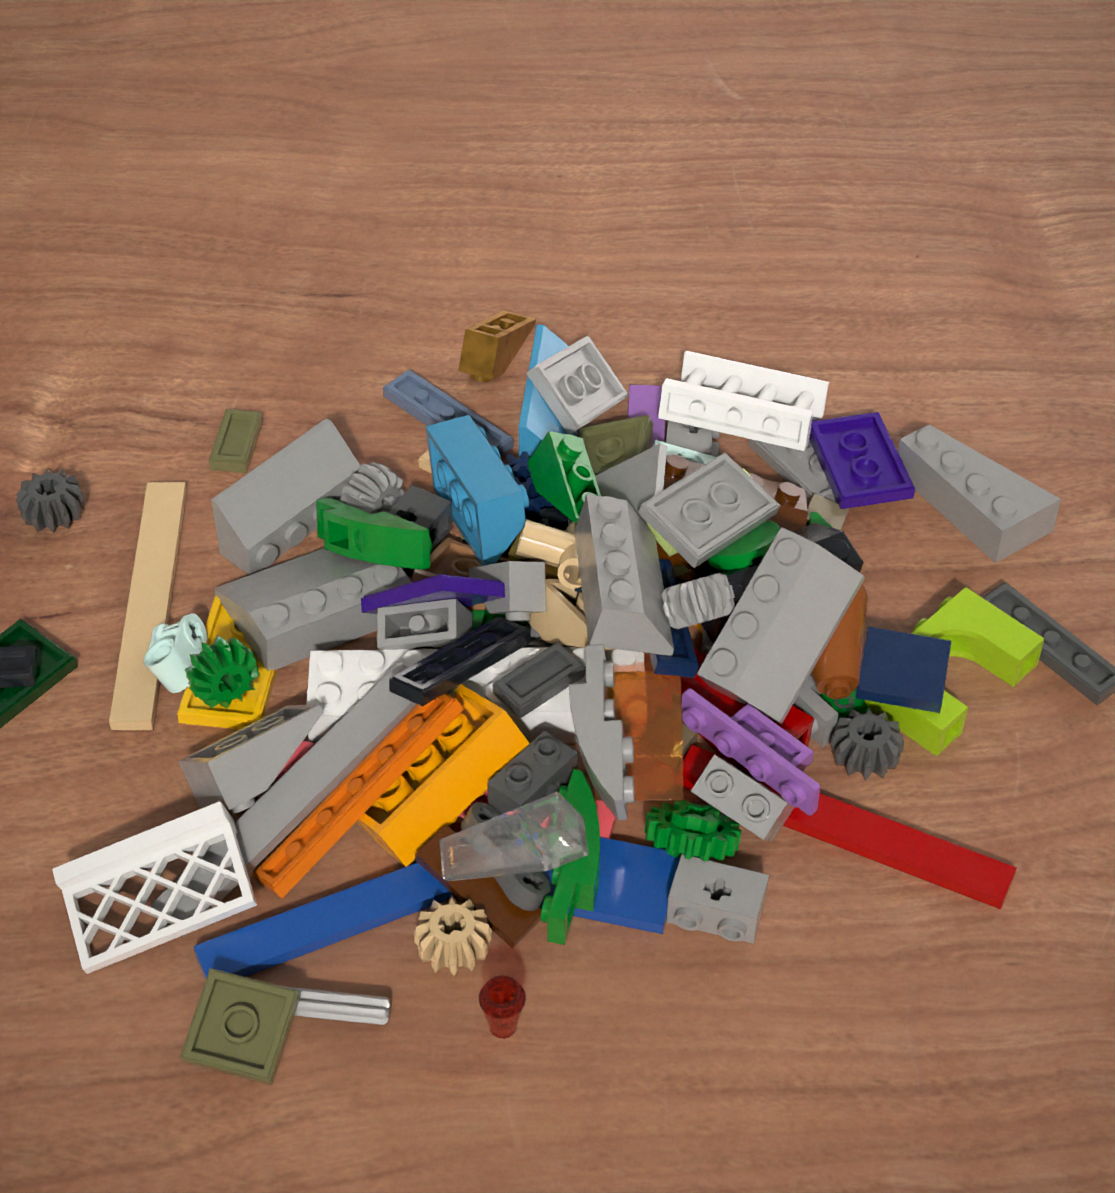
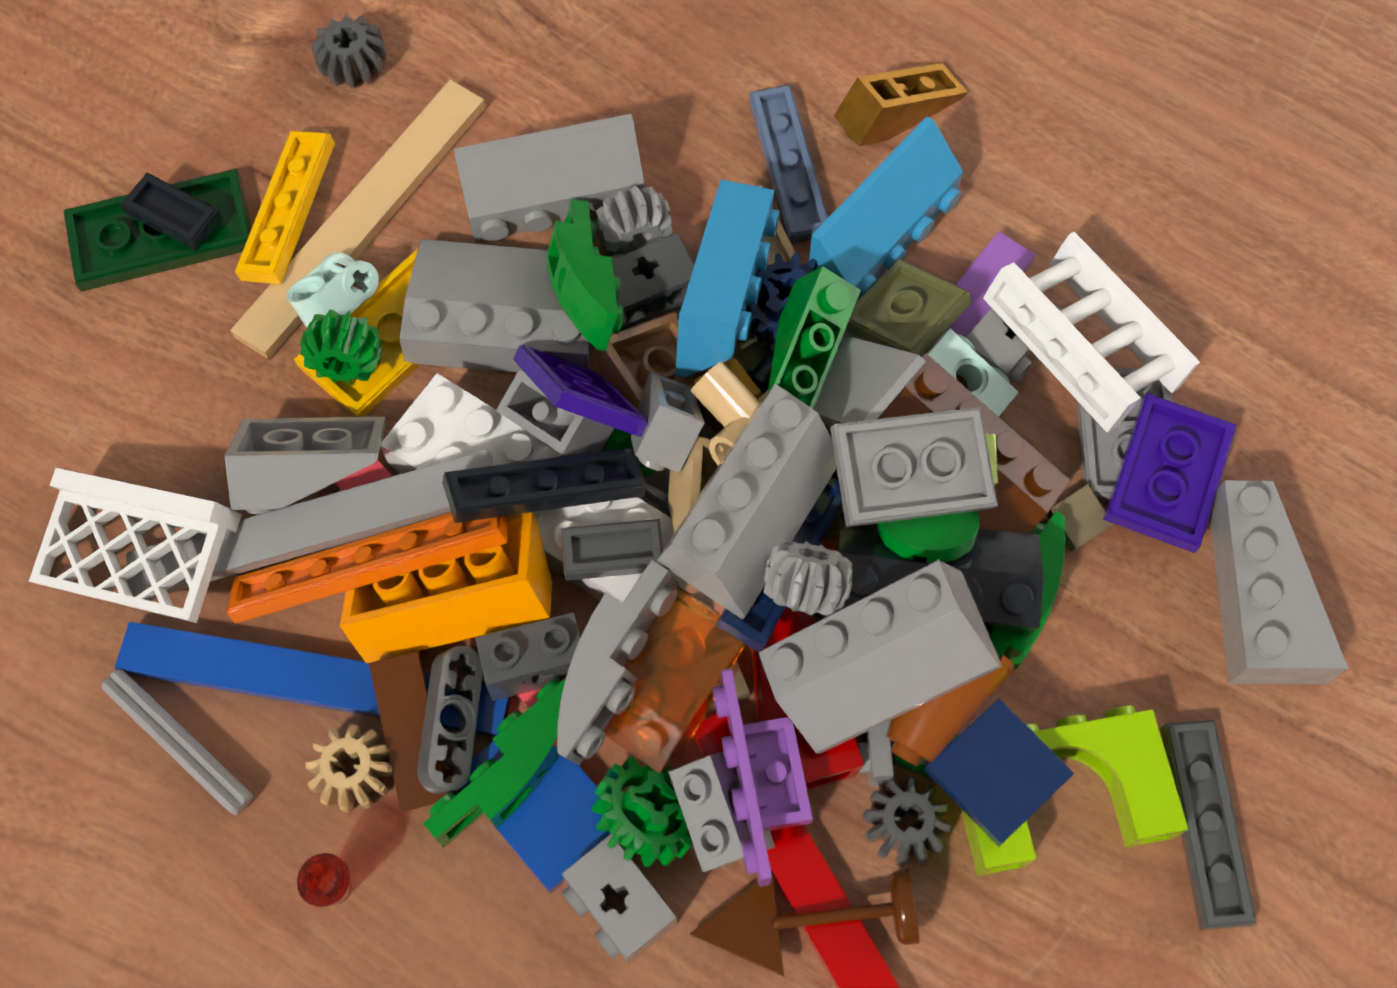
camera: 35 degrees right, 20 degrees up
(84, 623) = (285, 207): none -> yellow tile
(236, 441) = (568, 75): olive tile -> none
(240, 1026) = (104, 736): olive tile -> none
(517, 842) = (443, 729): clear slope -> none
(577, 384) = (927, 209): light grey tile -> none
(822, 865) = (751, 924): none -> reddish brown piece

